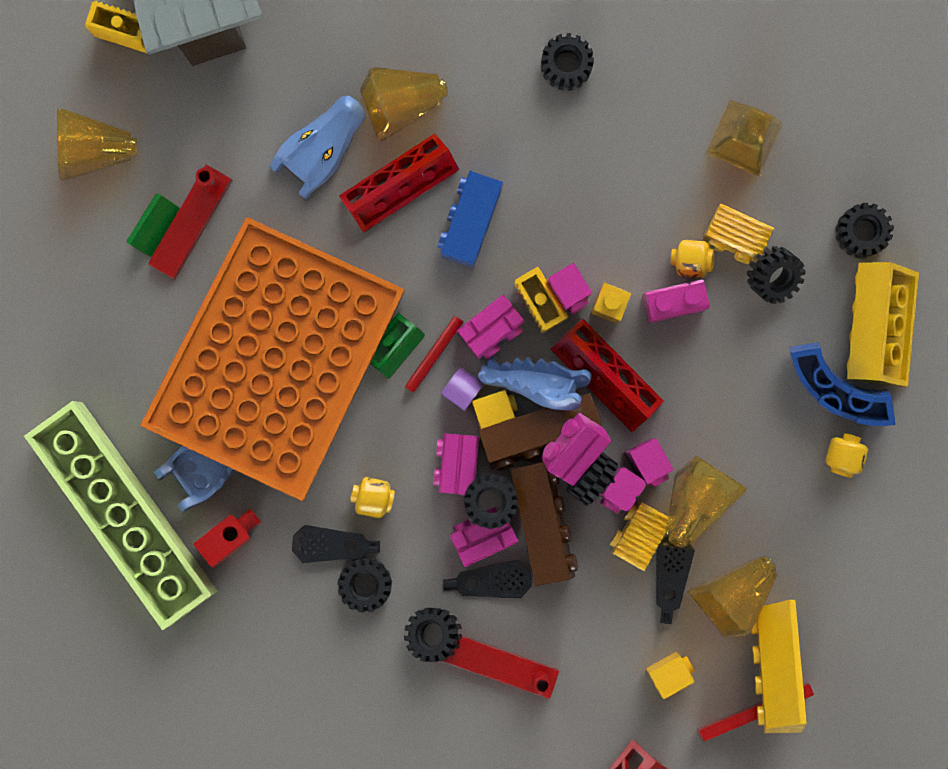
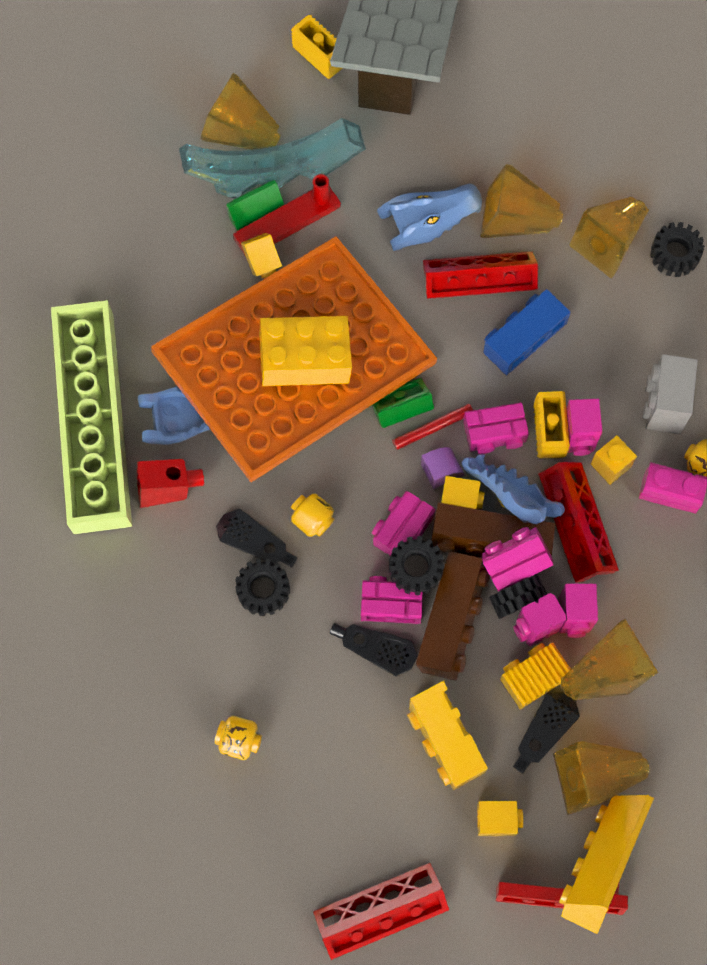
camera: 30 degrees right, 15 degrees down
(121, 200) = (239, 171): none -> clear light blue arch
(187, 274) = (261, 255): none -> yellow brick
(283, 354) = (305, 350): none -> yellow brick
(416, 634) = (309, 672): black tyre -> none
(417, 728) = (237, 737): none -> yellow head
(499, 78) = (608, 232): none -> clear yellow slope
(504, 667) = (343, 724): red piece -> none
(593, 632) = (446, 736): none -> yellow wedge
(632, 215) = (670, 394): none -> light grey brick

